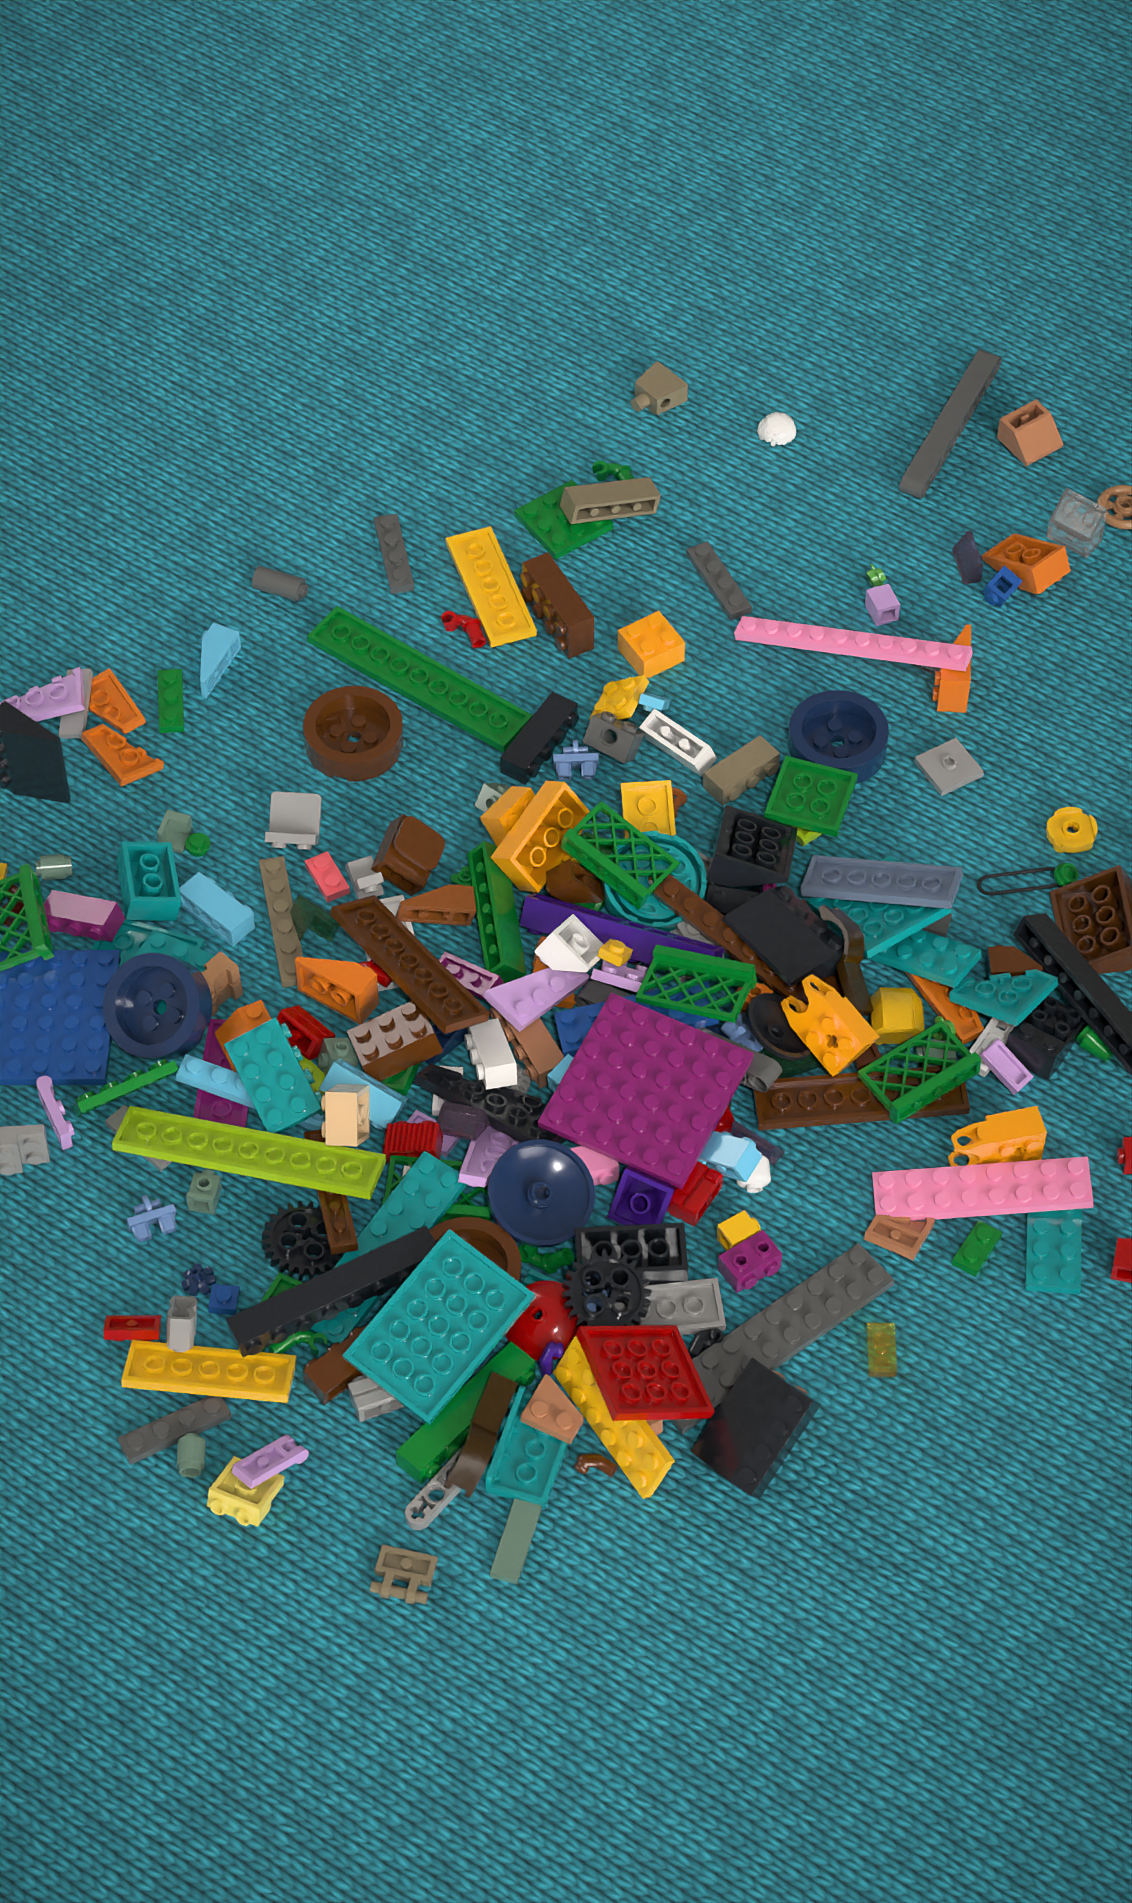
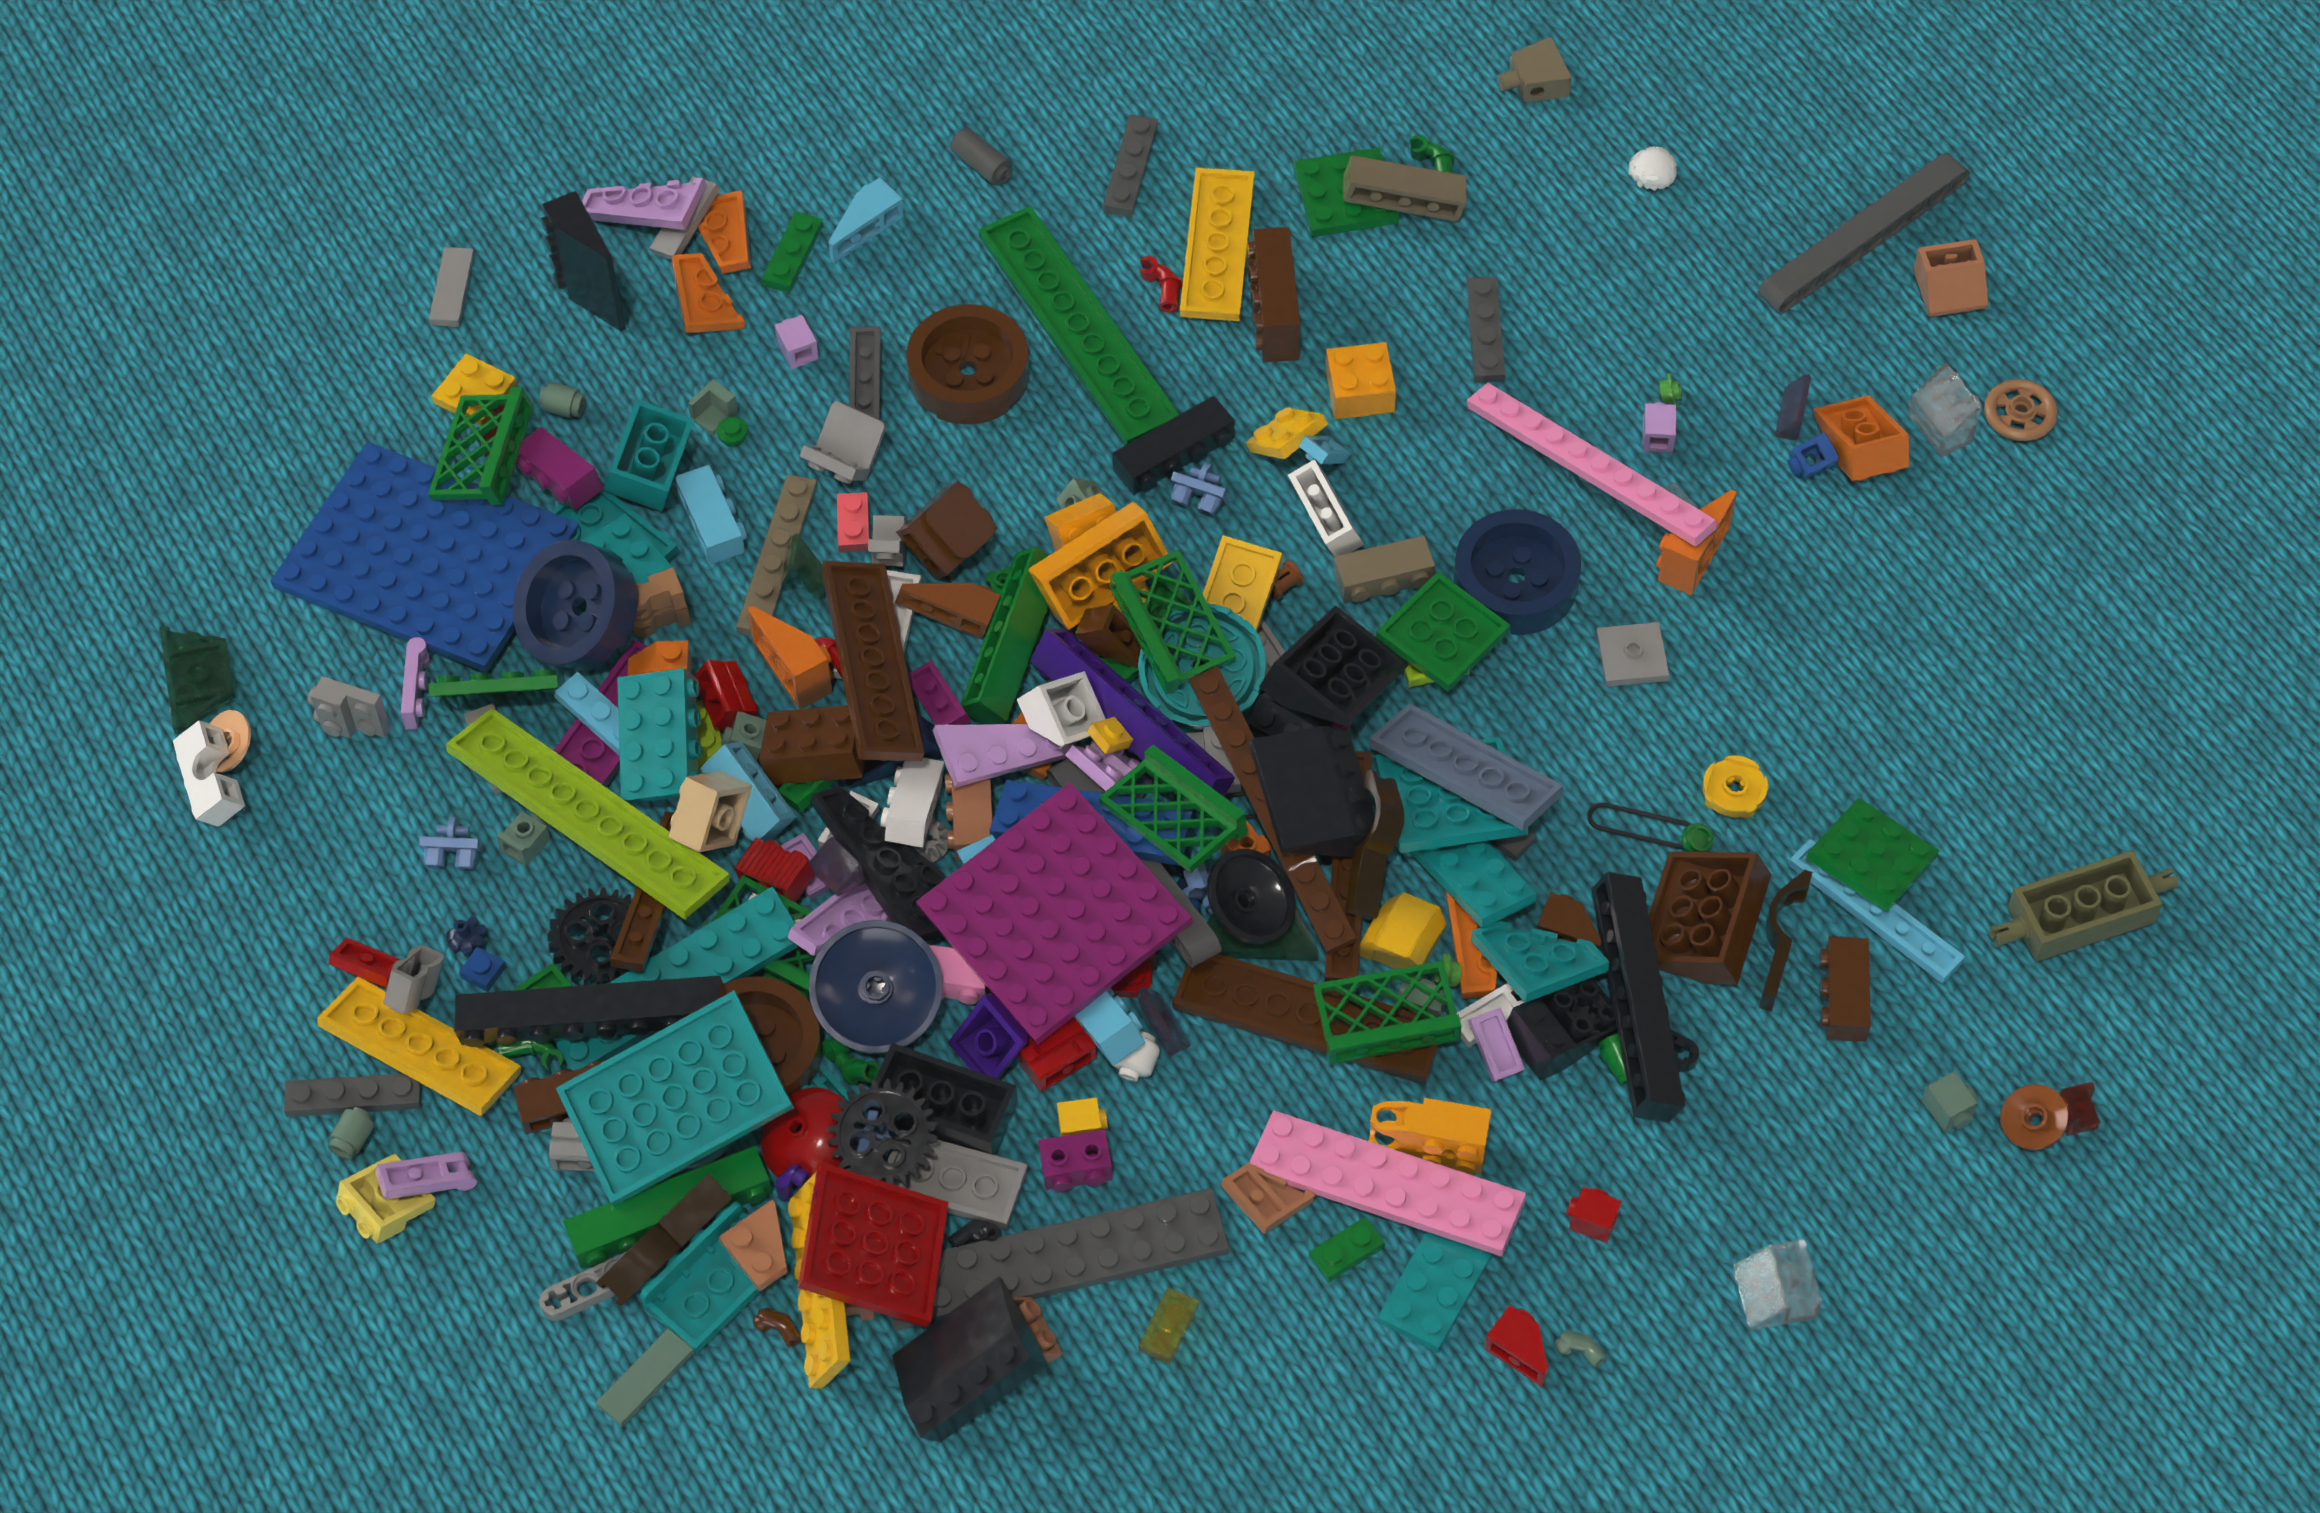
camera: 25 degrees right, 5 degrees up
(212, 762) = (796, 341): none -> lavender brick
(275, 763) = (865, 369): none -> dark grey plate
(404, 1566) = (508, 1355): dark tan plate -> none
(600, 736) = (1255, 475): dark grey brick -> none
(829, 1025) = (1304, 917): light orange brick -> none

